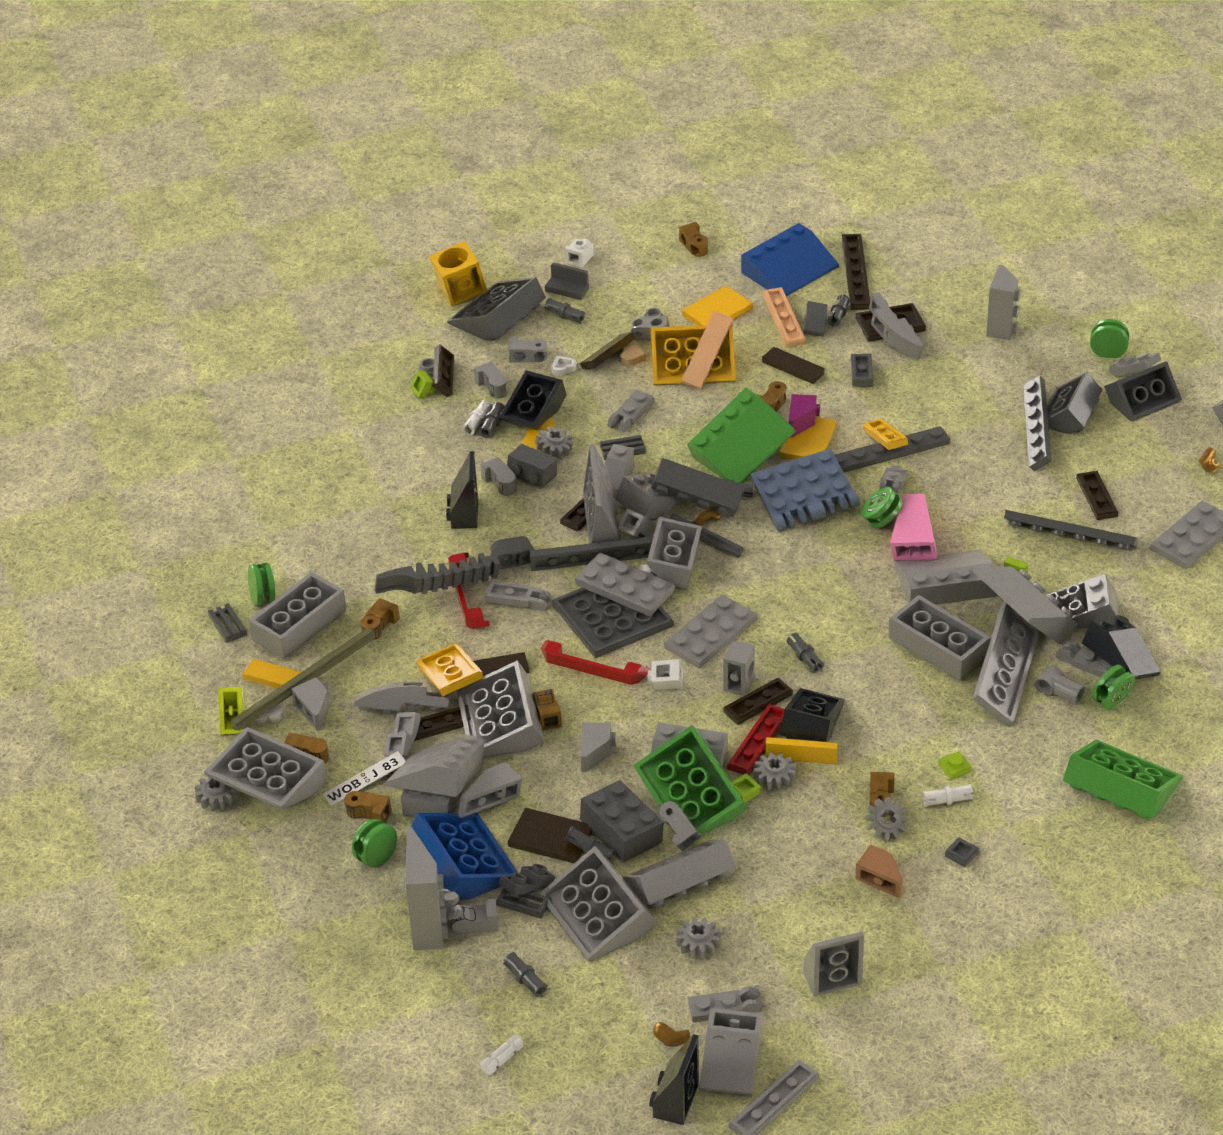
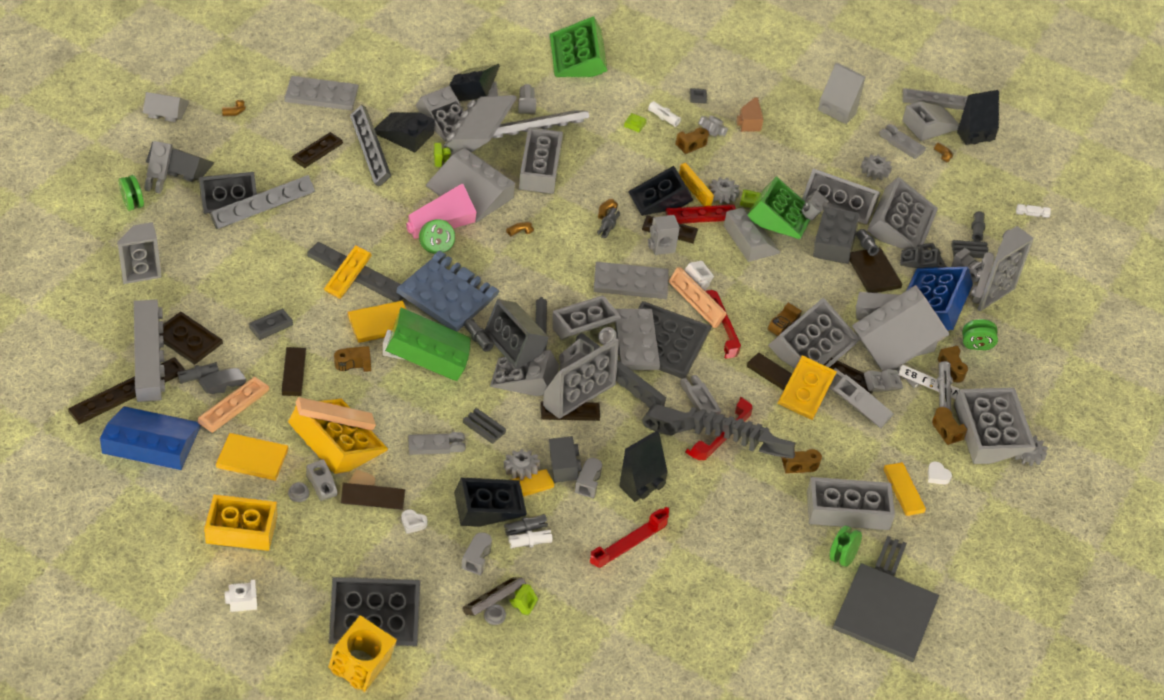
camera: 135 degrees left, 5 degrees up
(183, 586) = (886, 612): none -> dark grey tile
(230, 705) = (962, 488): neon yellow slope -> none
(311, 672) = (899, 462): olive axle -> none
(312, 701) = (907, 447): light grey slope -> none
(352, 778) = (944, 382): none -> light grey pin
(416, 481) = (657, 521): none -> red piece
(498, 942) = (976, 248): none -> dark grey tile
(527, 351) = (419, 551): light grey leg -> none
(564, 310) = (338, 558): dark grey pin -> none
(568, 281) = (298, 580): dark grey panel -> none
(596, 744) = (790, 280): light grey slope -> none
(619, 463) = (516, 408): light grey slope -> none
(621, 658) = (697, 297): none -> light nougat tile
(646, 269) = (241, 522): none -> yellow brick
(693, 240) = (161, 520): pearl gold leg -> none
(803, 412) = (368, 323): magenta slope -> none
(832, 664) = (604, 207): none -> pearl gold arm
(855, 586) = (518, 227): none -> pearl gold arm
(890, 283) = (147, 350): none -> light grey brick
(894, 330) = (207, 323): light grey slope -> none
(894, 478) = (400, 245): light grey hinge -> none
(1075, 563) = (406, 129): none -> black slope
(1113, 687) = (513, 71): bright green head -> none

